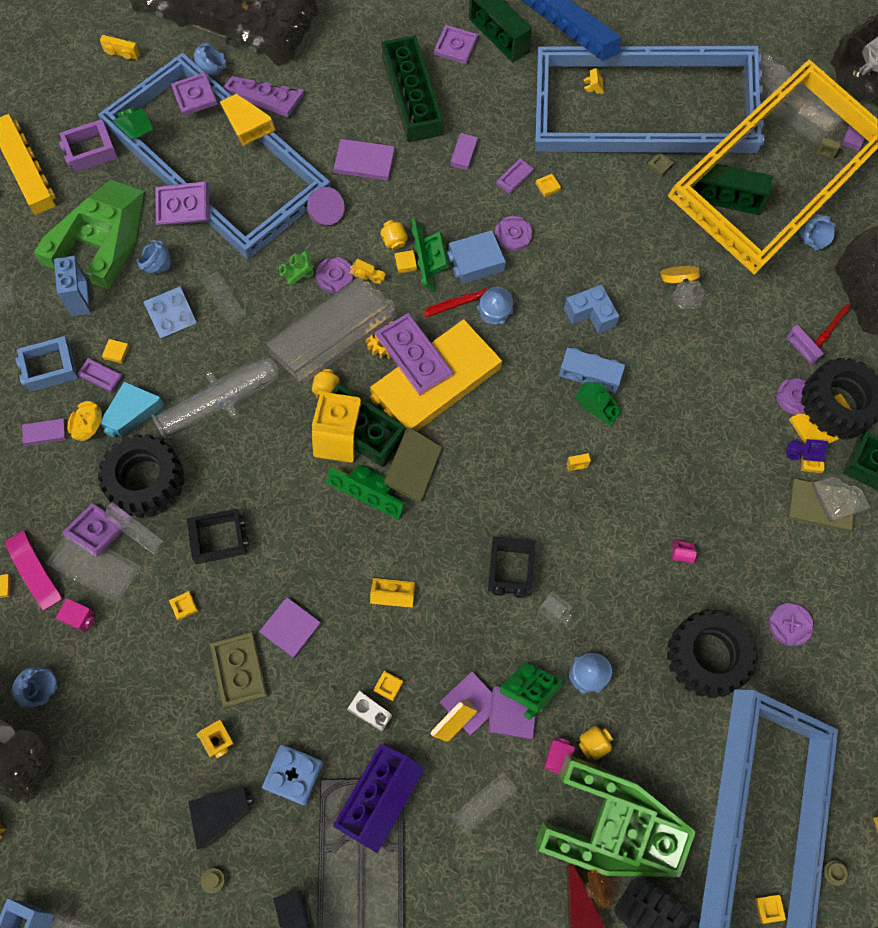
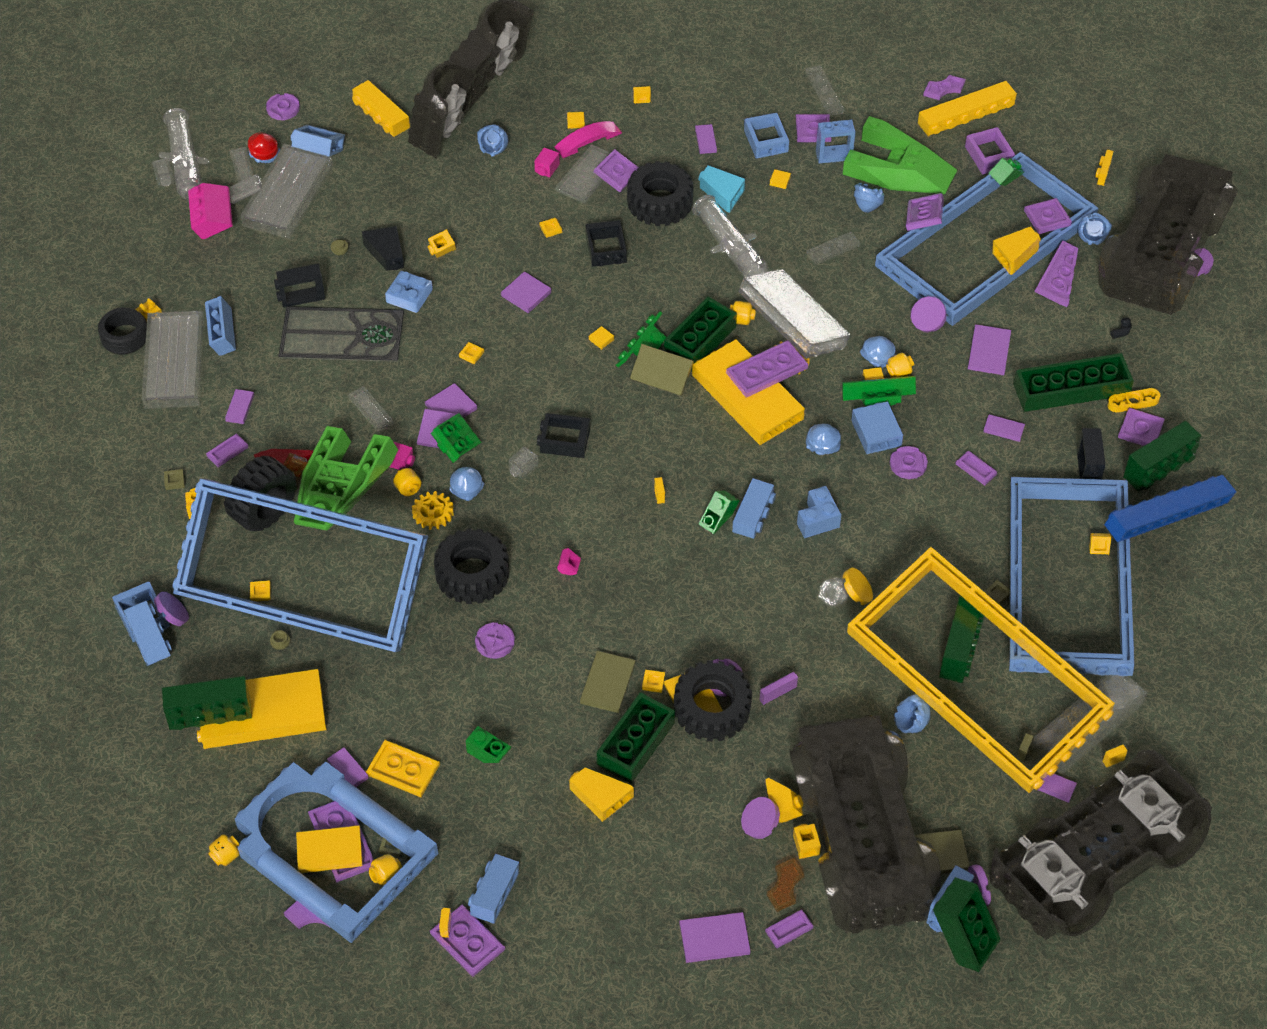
camera: 95 degrees right, 15 degrees down
(35, 317) = (808, 126): none -> medium lavender tile
(84, 421) = (712, 158): yellow tile -> none
(100, 375) = (757, 170): medium lavender tile -> none
(133, 528) = (614, 190): clear tile -> none
(170, 312) = (817, 209): medium blue bracket -> none
(238, 670) = (495, 261): olive tile -> none
(298, 268) = (859, 293): bright green hips -> none
(333, 280) = (859, 325): medium lavender tile -> none
(335, 48) = (1123, 330): none -> black arm
(335, 426) = (700, 306): yellow piece -> none
(359, 536) = (601, 337): none -> yellow tile
(366, 271) = (857, 340): yellow plate -> none
(369, 711) = (451, 336): white leg -> none
(375, 252) = (878, 351): none -> medium blue hair
(378, 797) = (382, 339): dark purple slope -> none
(392, 592) = (550, 358): yellow slope -> none
(425, 40) = (1139, 395): none -> yellow beam
(449, 304) = (826, 405): red piece -> none
(454, 721) = (436, 386): yellow slope -> none
(504, 66) = (1091, 454): none -> black window
(548, 185) = (966, 494): yellow tile -> none
(632, 718) = (432, 510): none -> yellow gear
(812, 451) = (661, 671): dark purple plate -> none
(825, 335) = (787, 709): red piece -> none
(839, 498) = (609, 687): clear plate -> none

